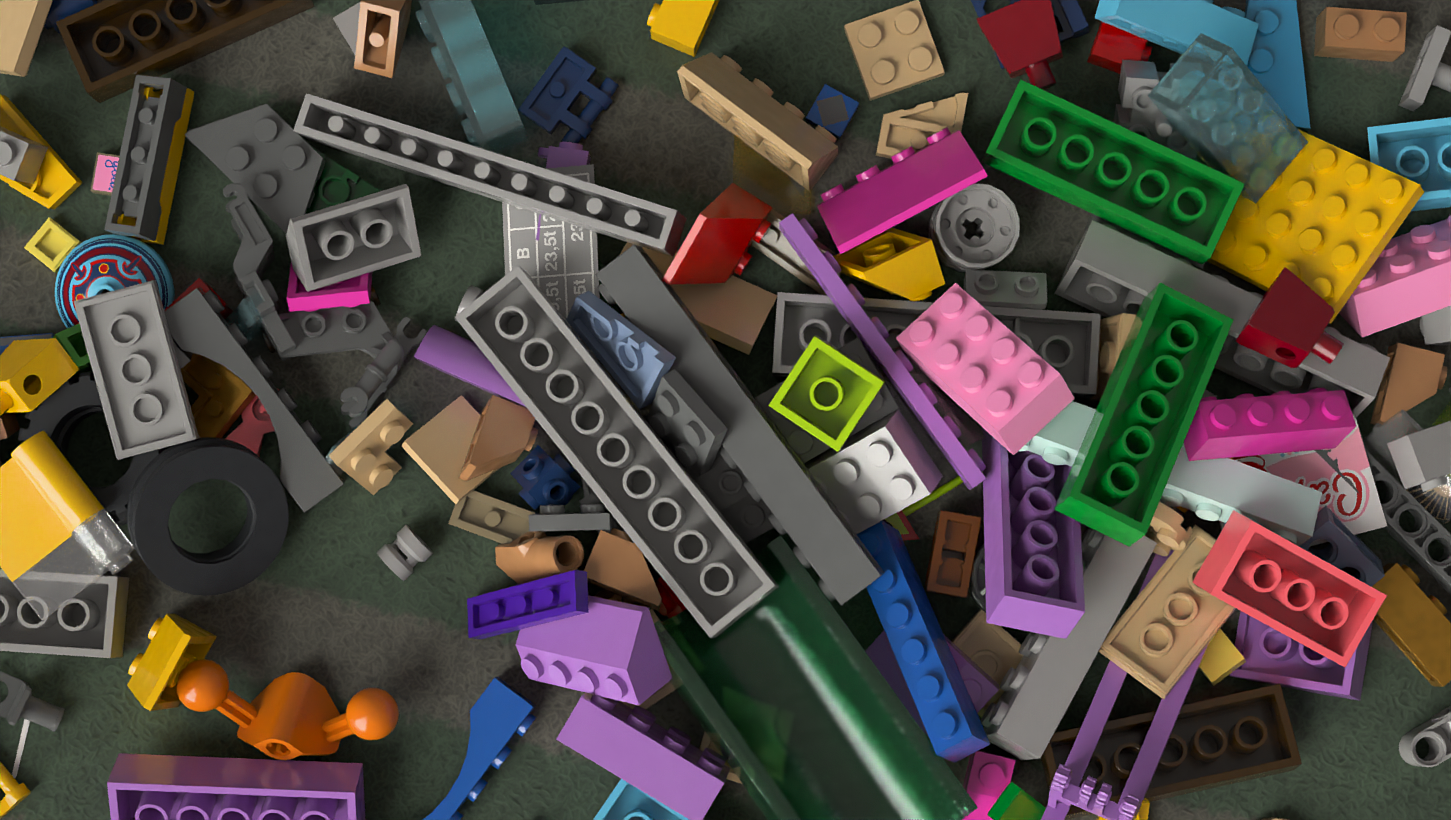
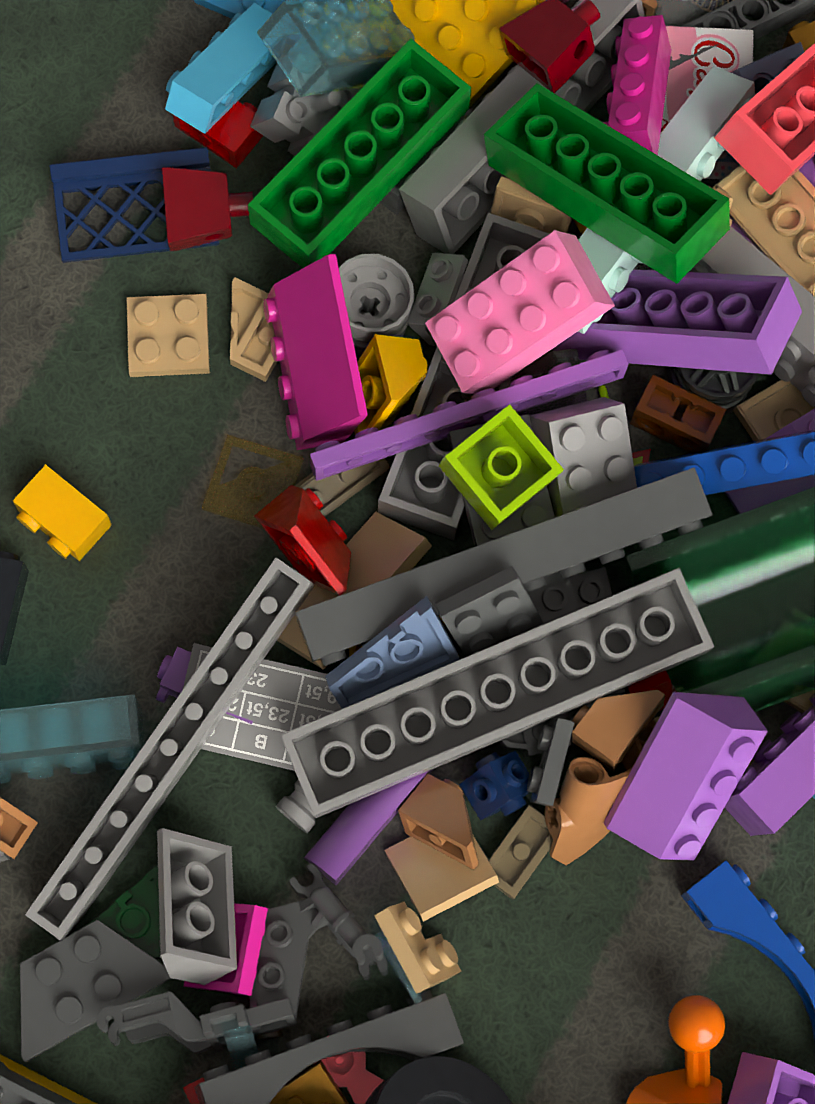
camera: 85 degrees left, 10 degrees down
(411, 546) = (527, 943): light grey wheel -> none
(528, 604) = (625, 831): dark purple plate -> none
(558, 91) = (102, 662): dark blue plate -> none
(757, 118) = (201, 472): tan slope -> none
(832, 111) = (209, 409): tile -> none

